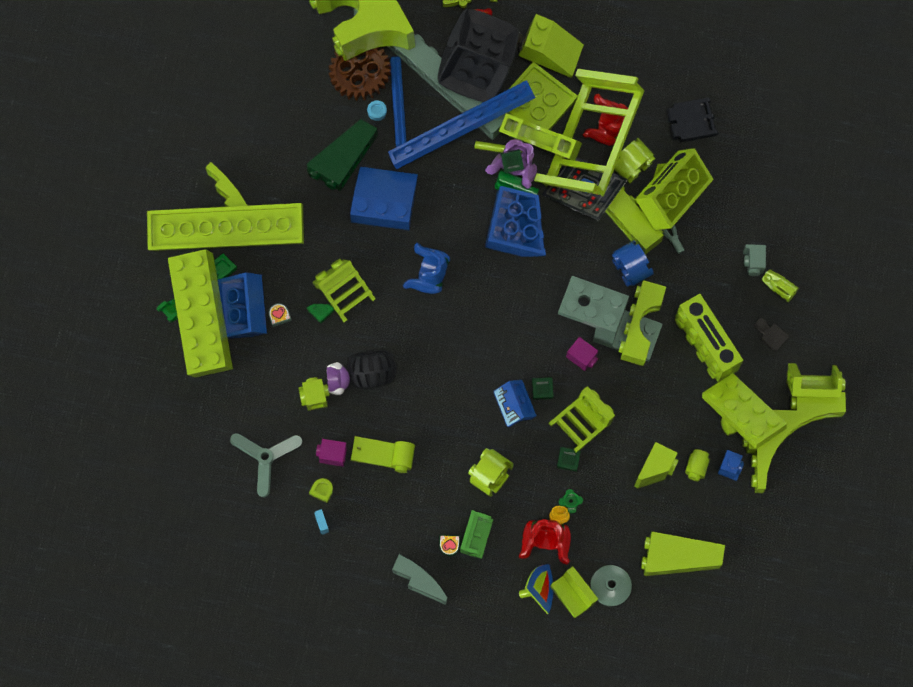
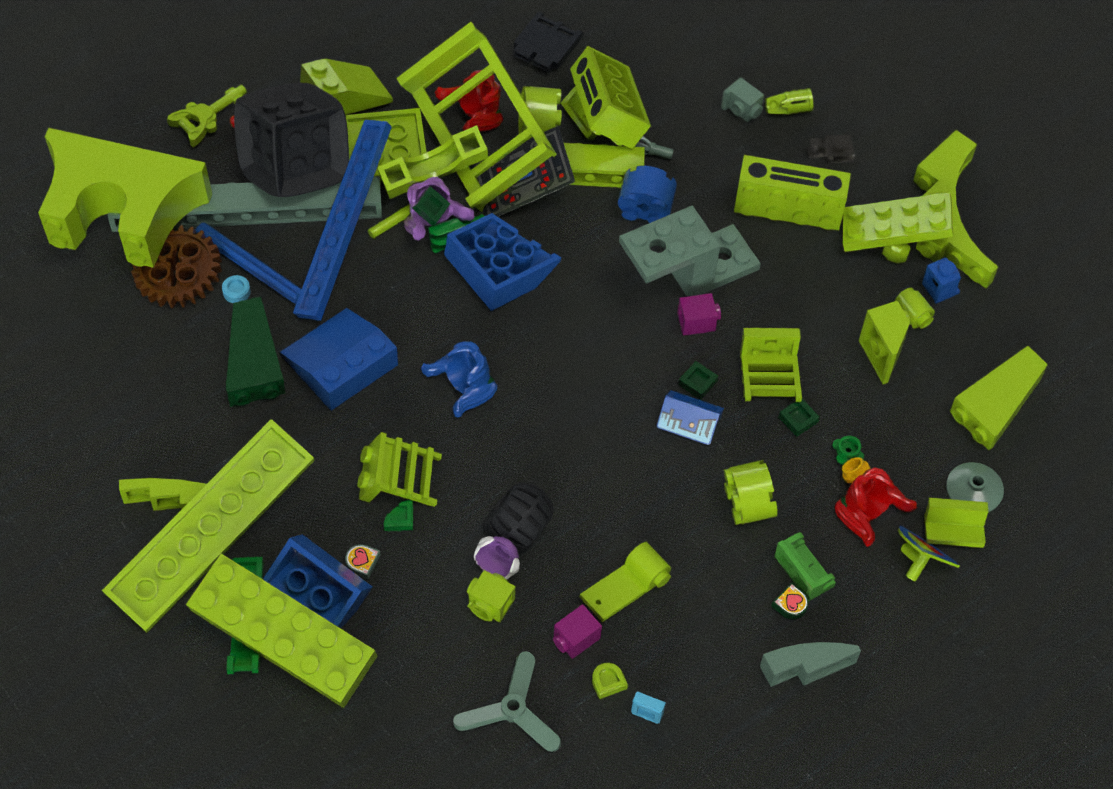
camera: 50 degrees left, 15 degrees down
(636, 345) = (738, 256): lime arch -> none
(815, 385) = (937, 133): lime panel -> none

